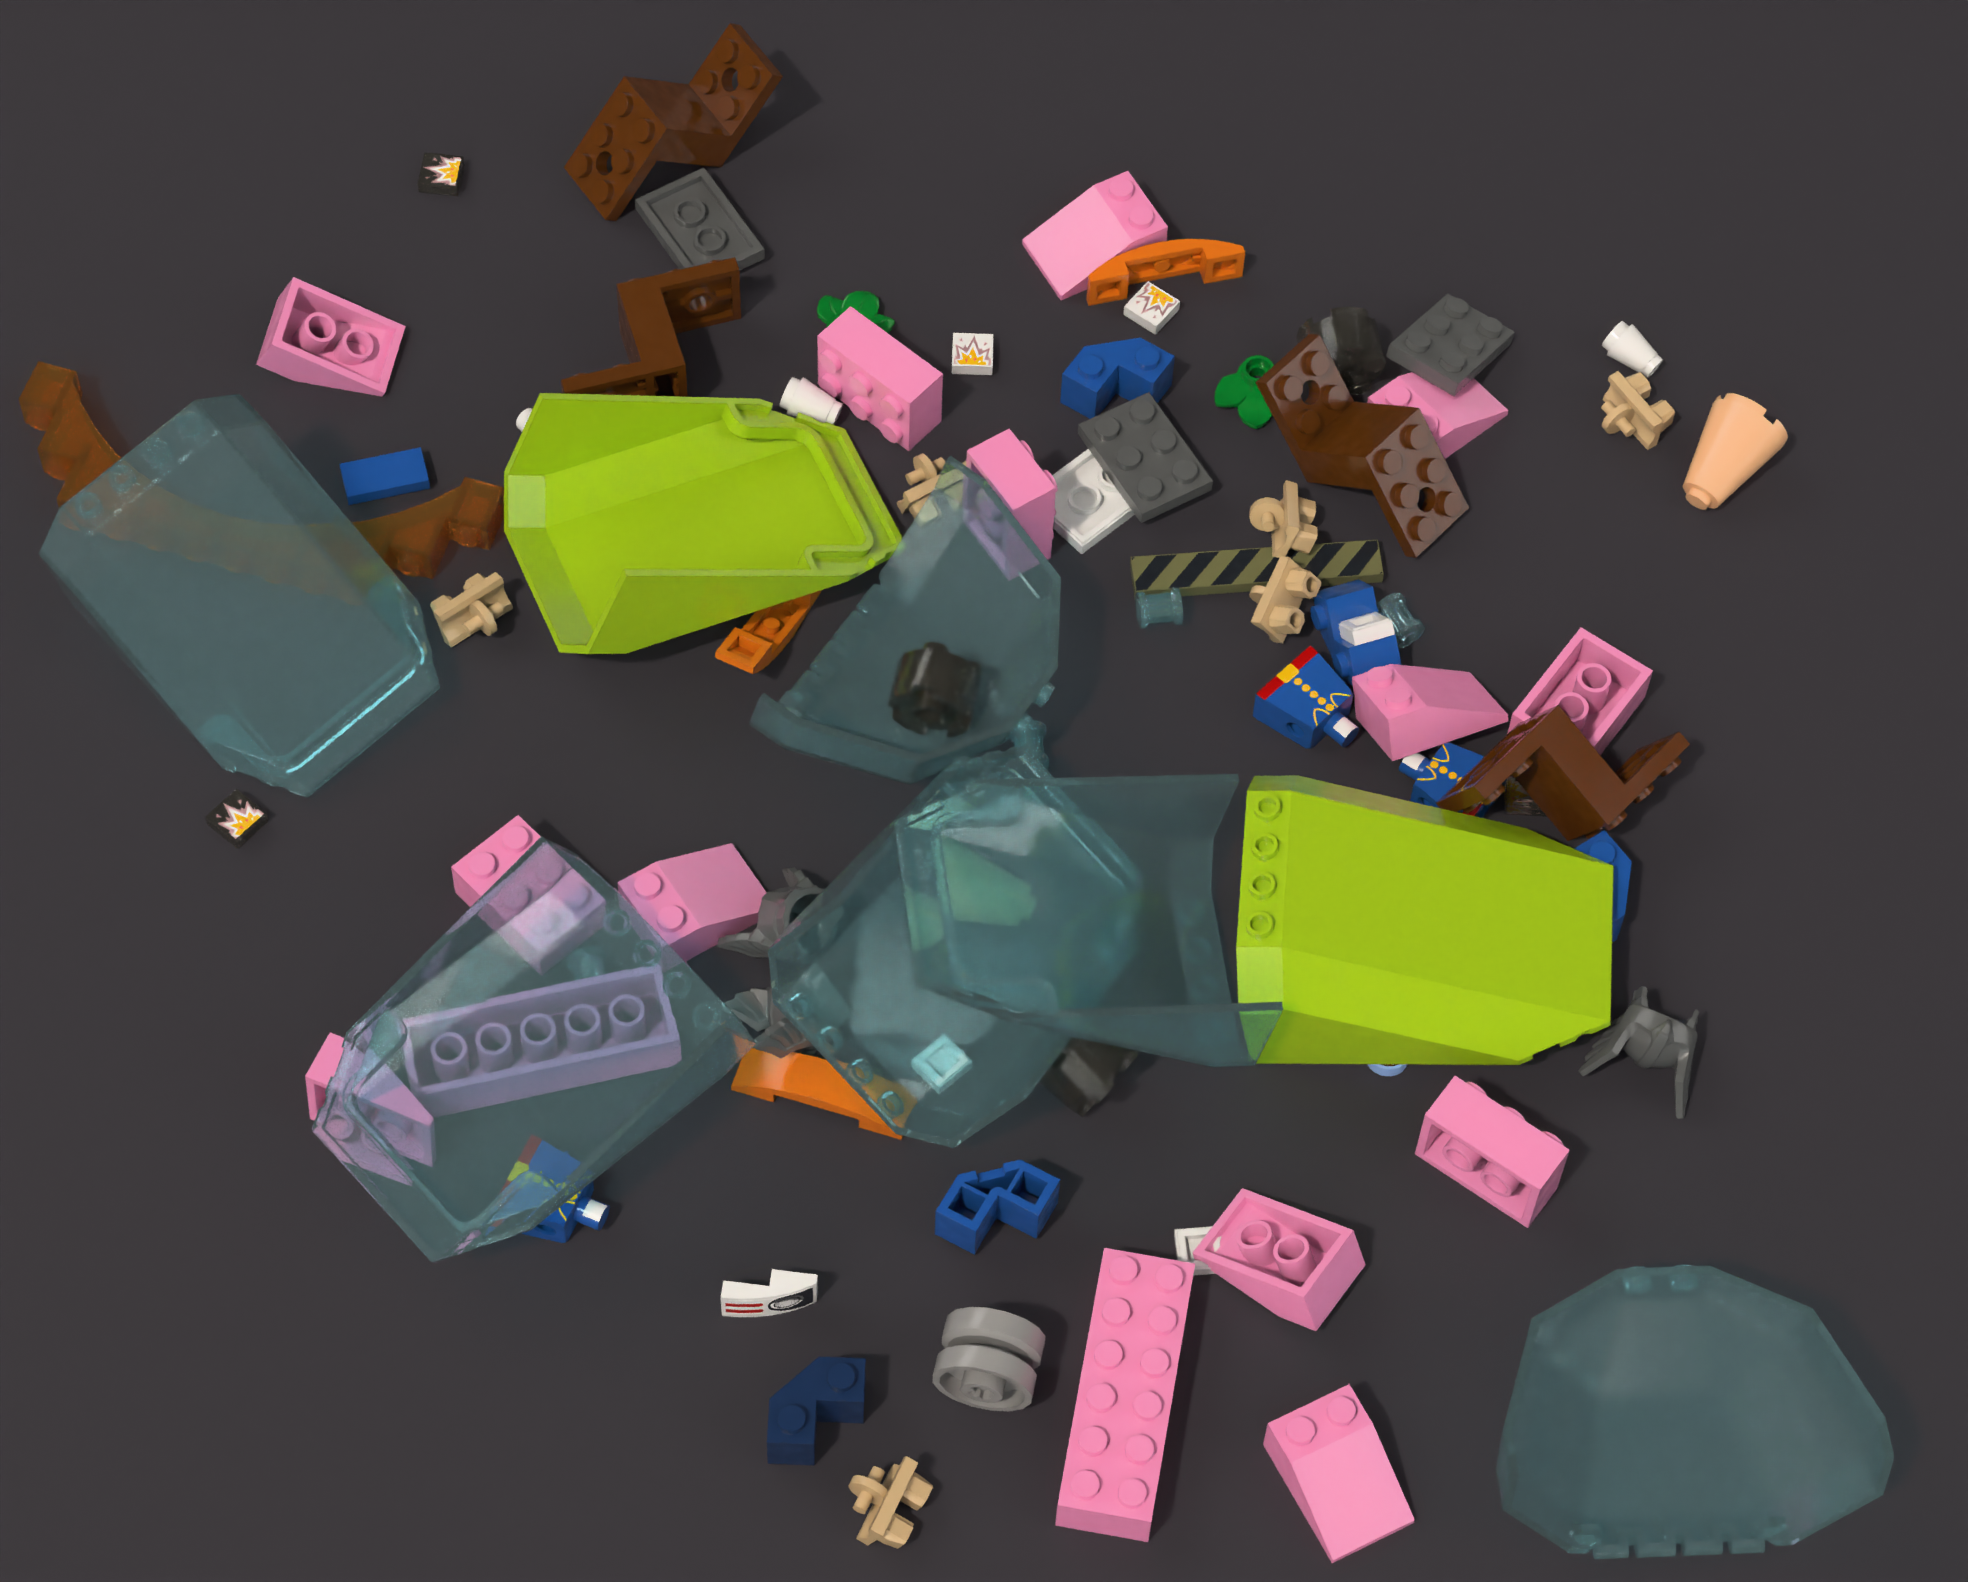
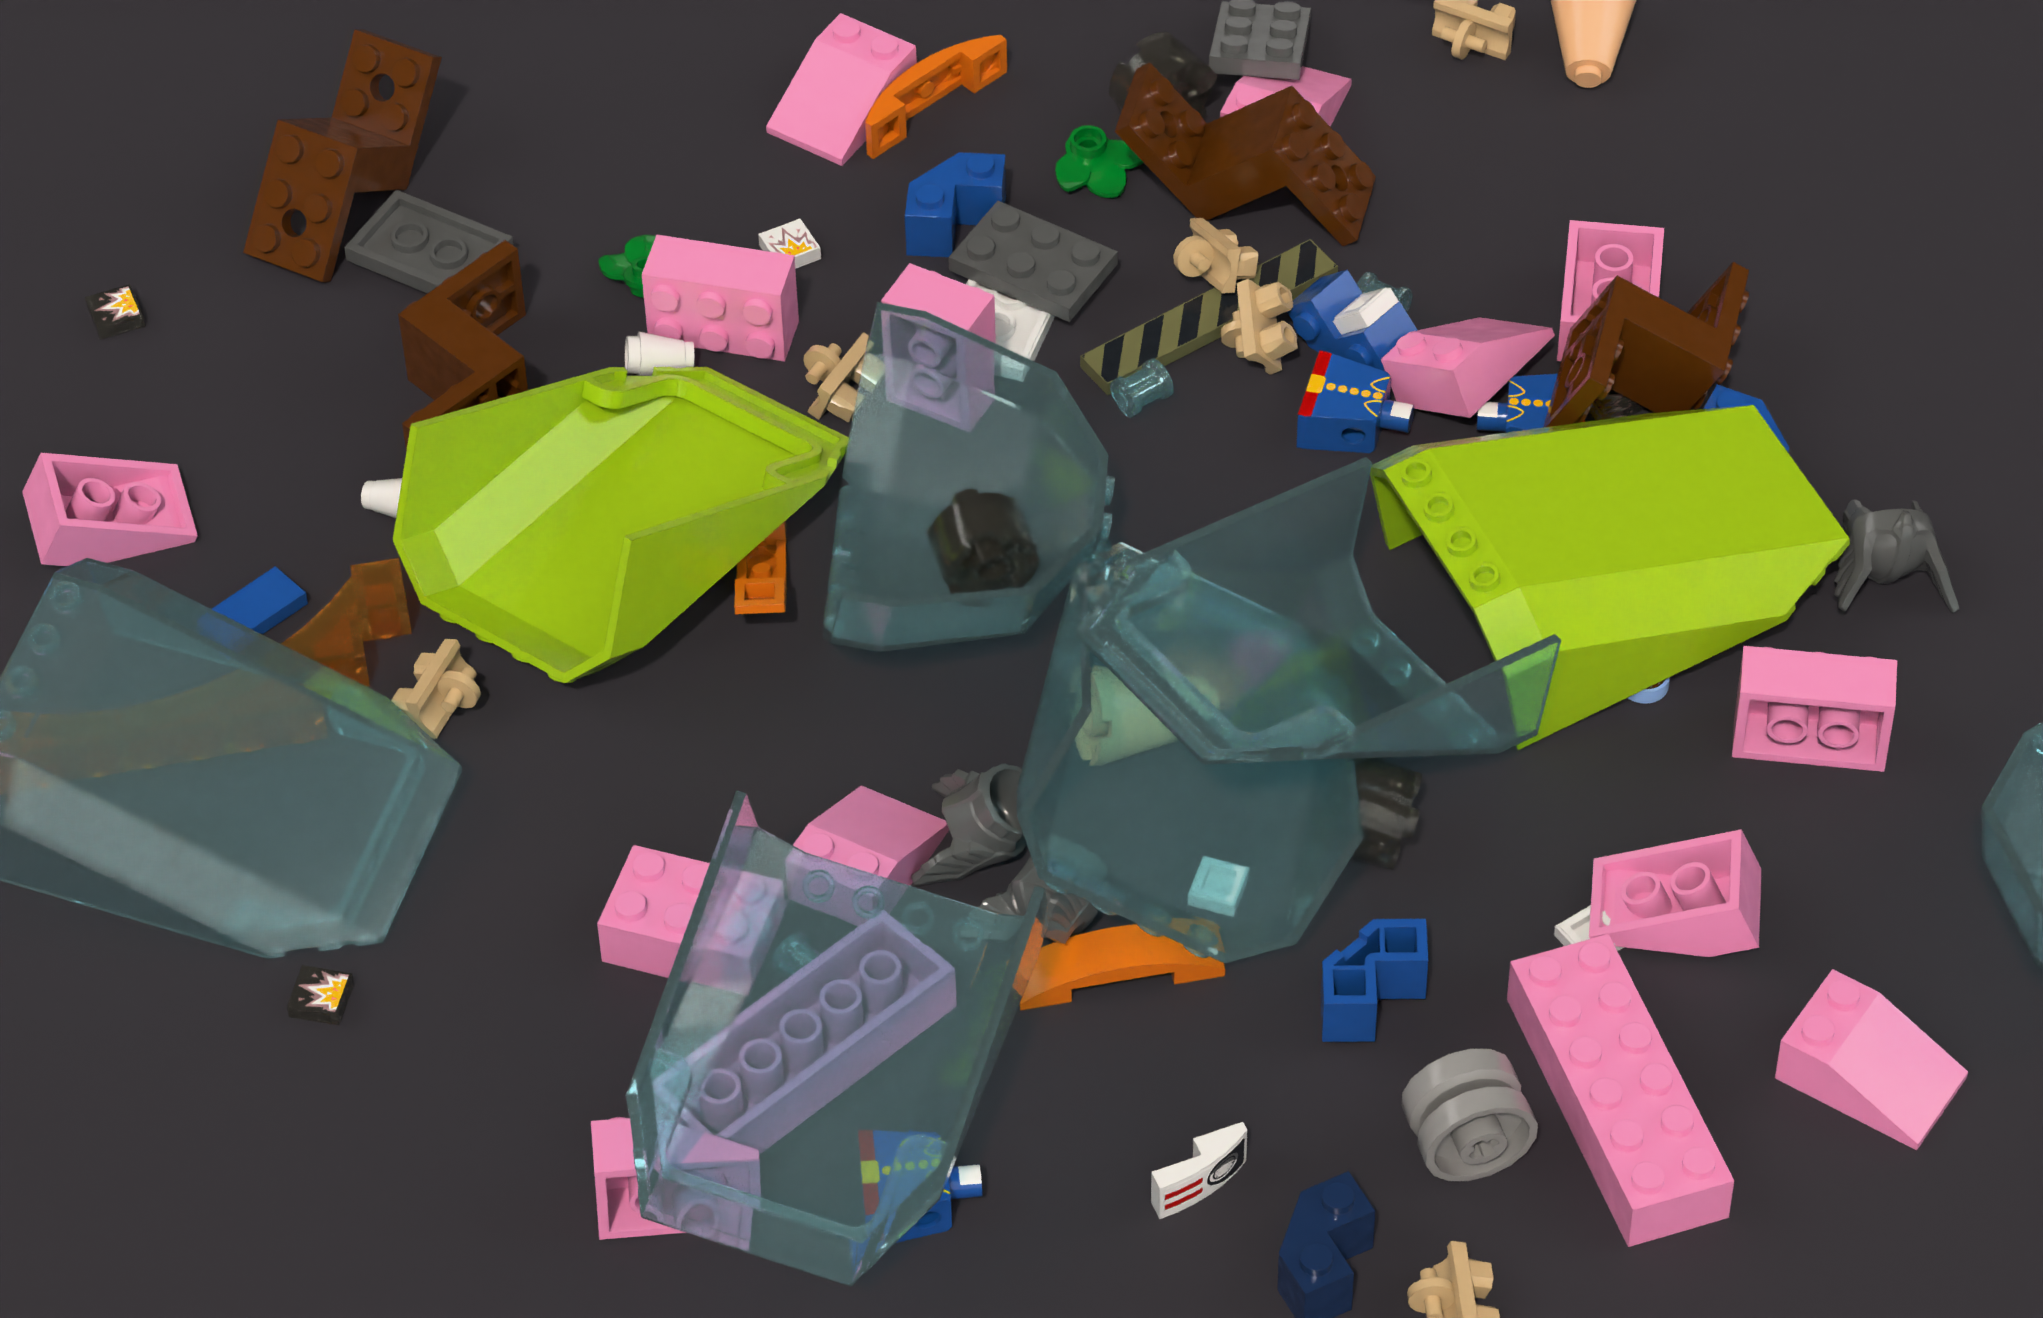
camera: 25 degrees left, 10 degrees down
(1151, 307) = (940, 132): white tile -> none

